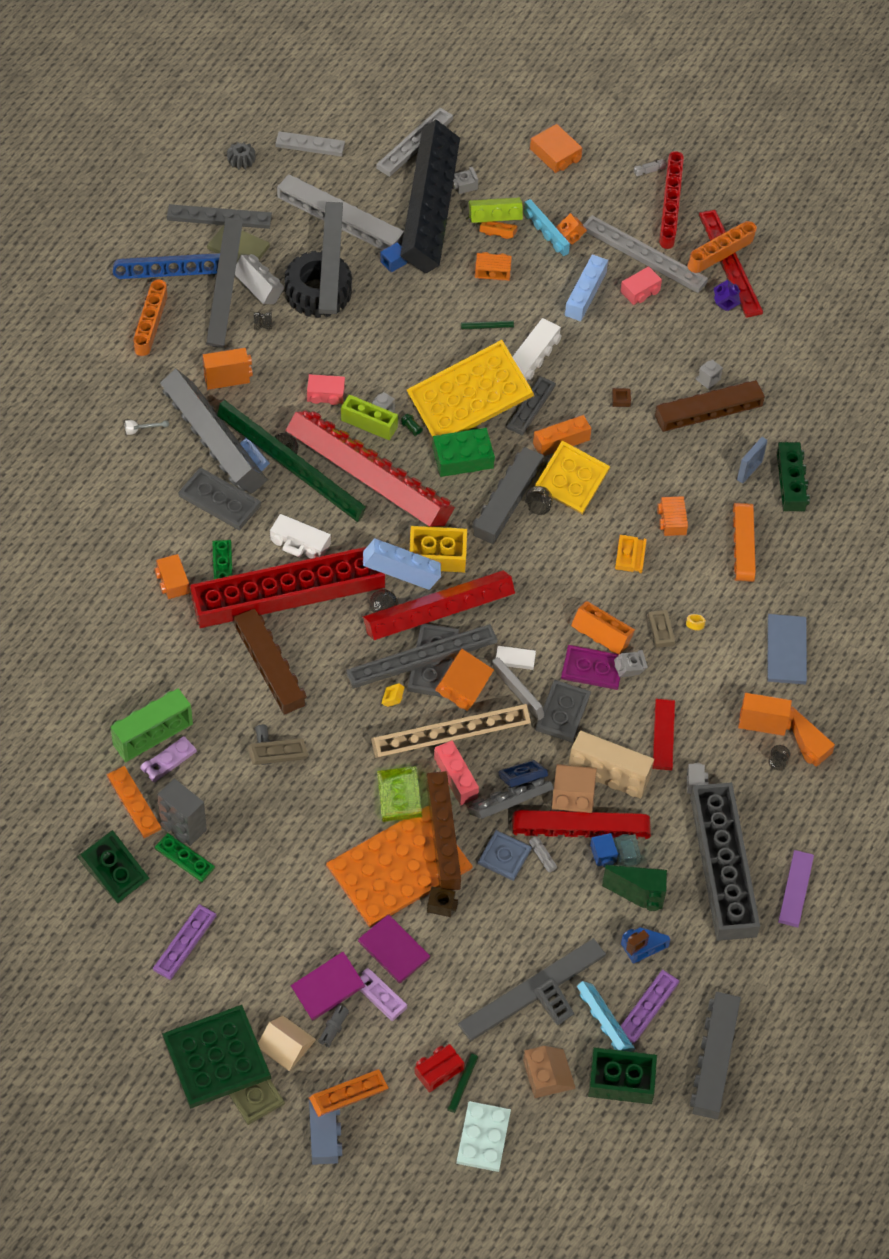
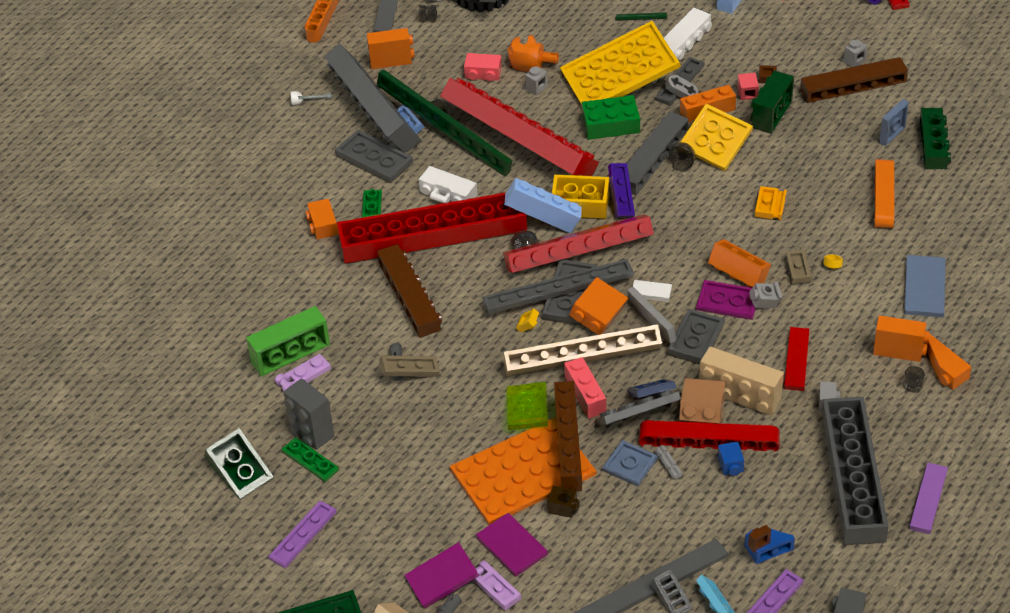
camera: 10 degrees right, 10 degrees down
(134, 802) = (265, 410): orange plate -> none
(369, 417) = (522, 88): lime brick -> none
(374, 378) = (529, 55): none -> orange piece
(408, 421) = (563, 96): dark green pin -> none
(479, 542) = (621, 190): none -> dark purple plate
(534, 415) = (681, 86): none -> light grey beam
(602, 413) = (748, 86): none -> coral brick
(627, 850) = (755, 459): clear light blue brick -> none
(628, 435) = (772, 101): none -> dark green brick
(638, 885) = (762, 488): dark green slope -> none
(673, 515) = (814, 171): orange brick -> none

